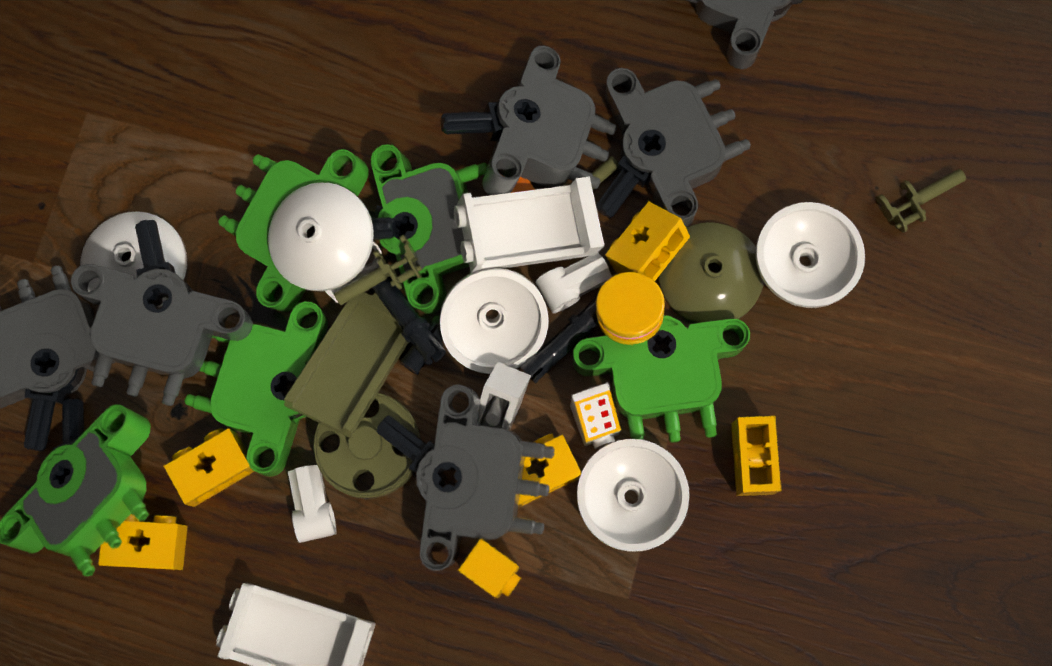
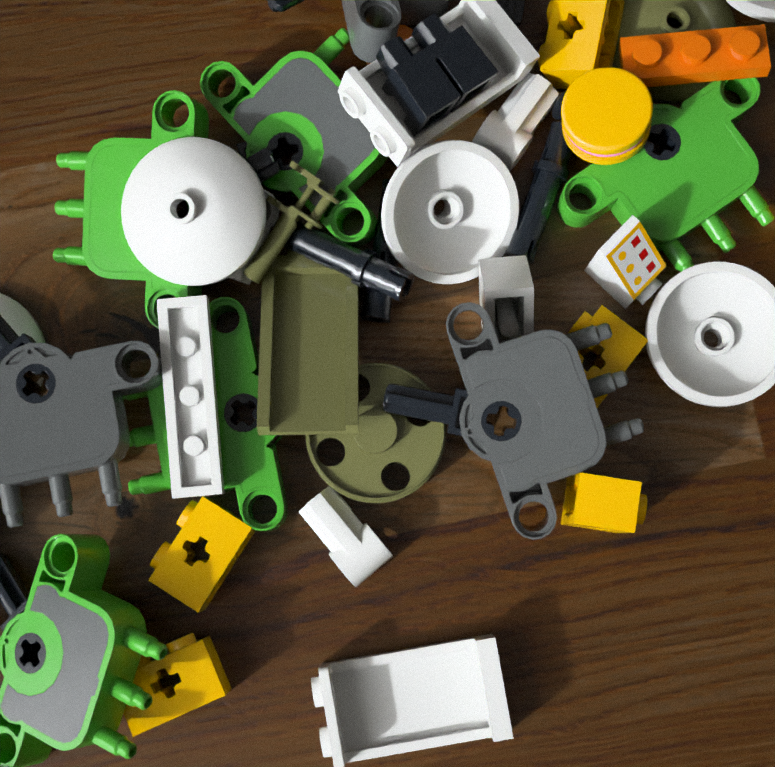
camera: 25 degrees left, 5 degrees up
(254, 358) = (190, 397): none -> white plate
(525, 227) = (438, 77): none -> black hips
(714, 297) = (697, 55): none -> orange plate

